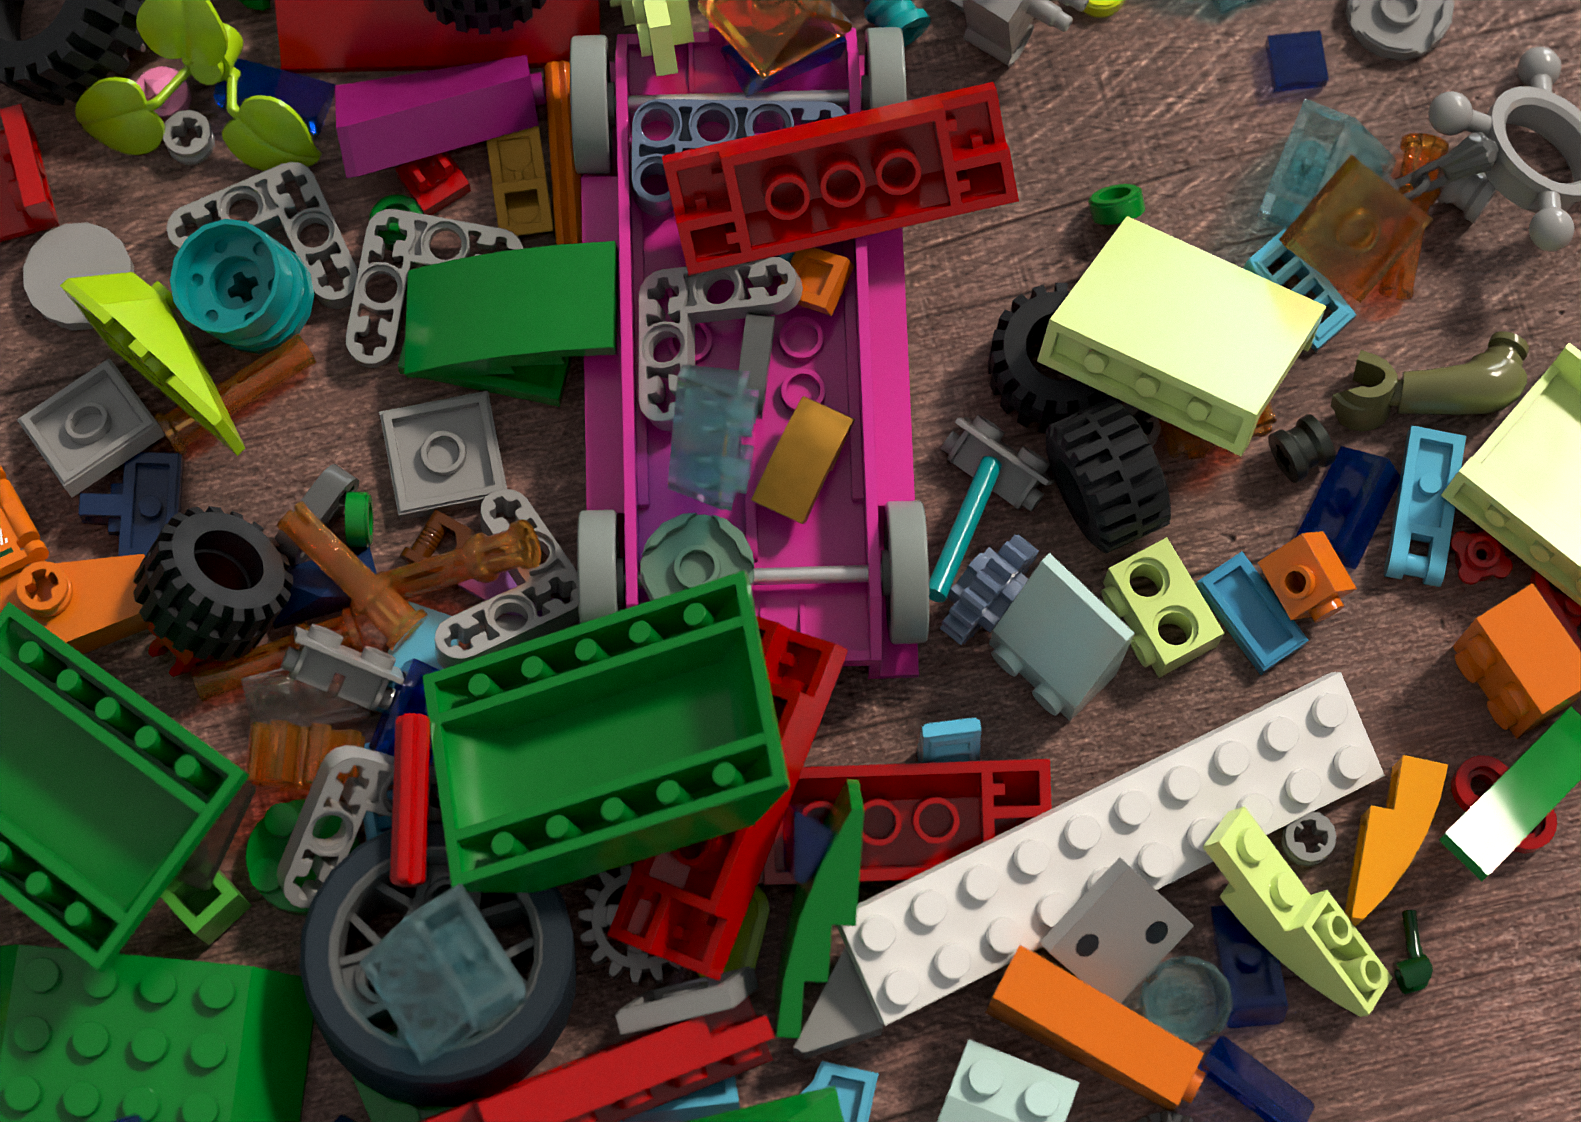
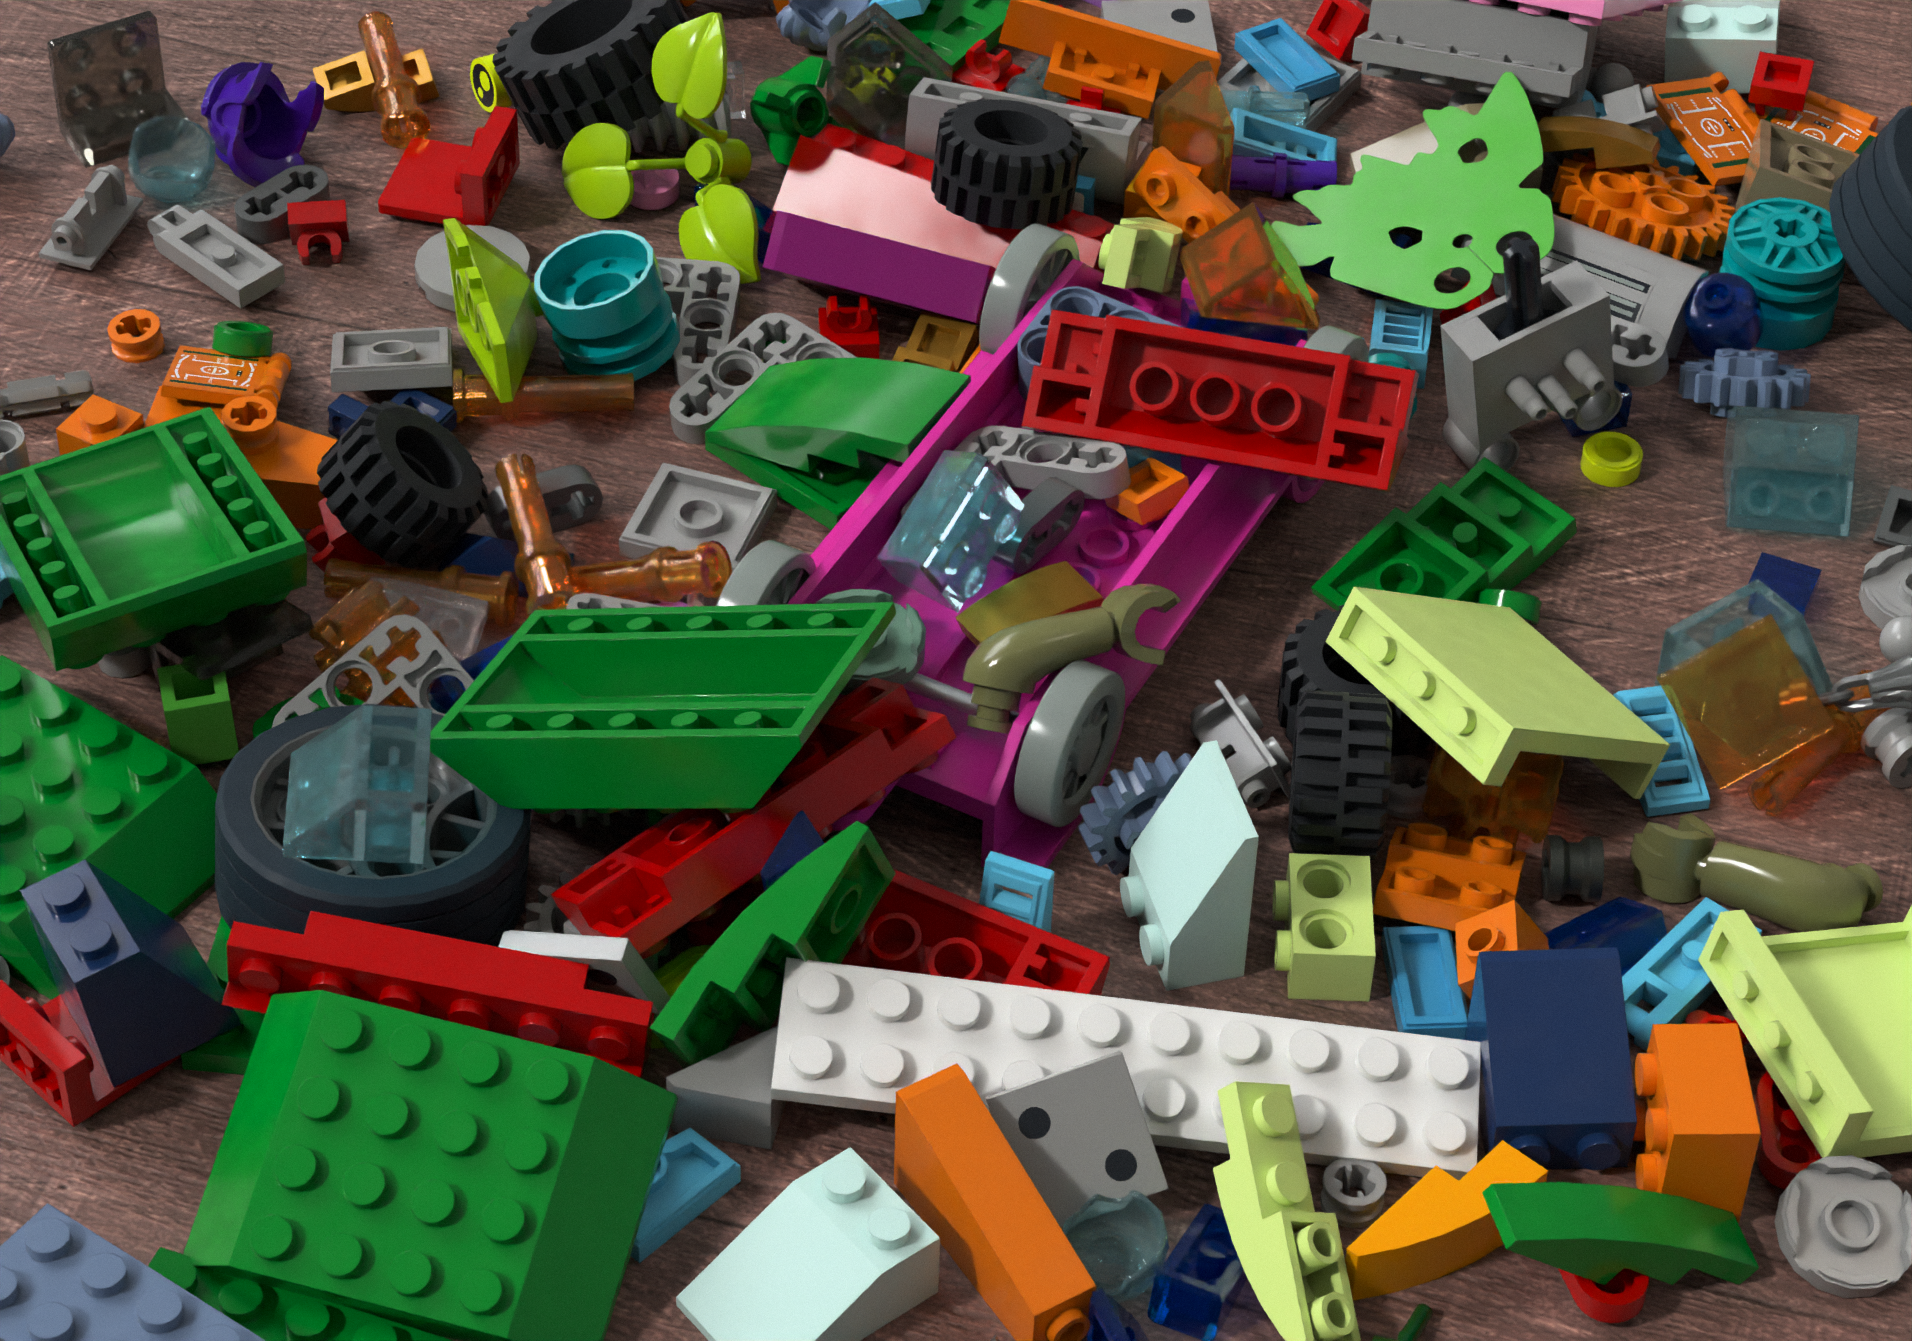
camera: 30 degrees right, 30 degrees down
(177, 126) = (651, 217): light grey bush -> none
(359, 519) = (579, 522): green tile -> none
(364, 673) = (457, 574): light grey hinge -> none
(410, 800) = (459, 664): red axle -> none
(850, 531) = (1027, 652): none -> olive piece
(963, 528) = (1227, 738): teal bar -> none
(1055, 142) = (1455, 541): none -> green slope
(1223, 509) = (1445, 878): none -> orange slope
(1397, 659) = (1554, 1056): none -> dark blue slope

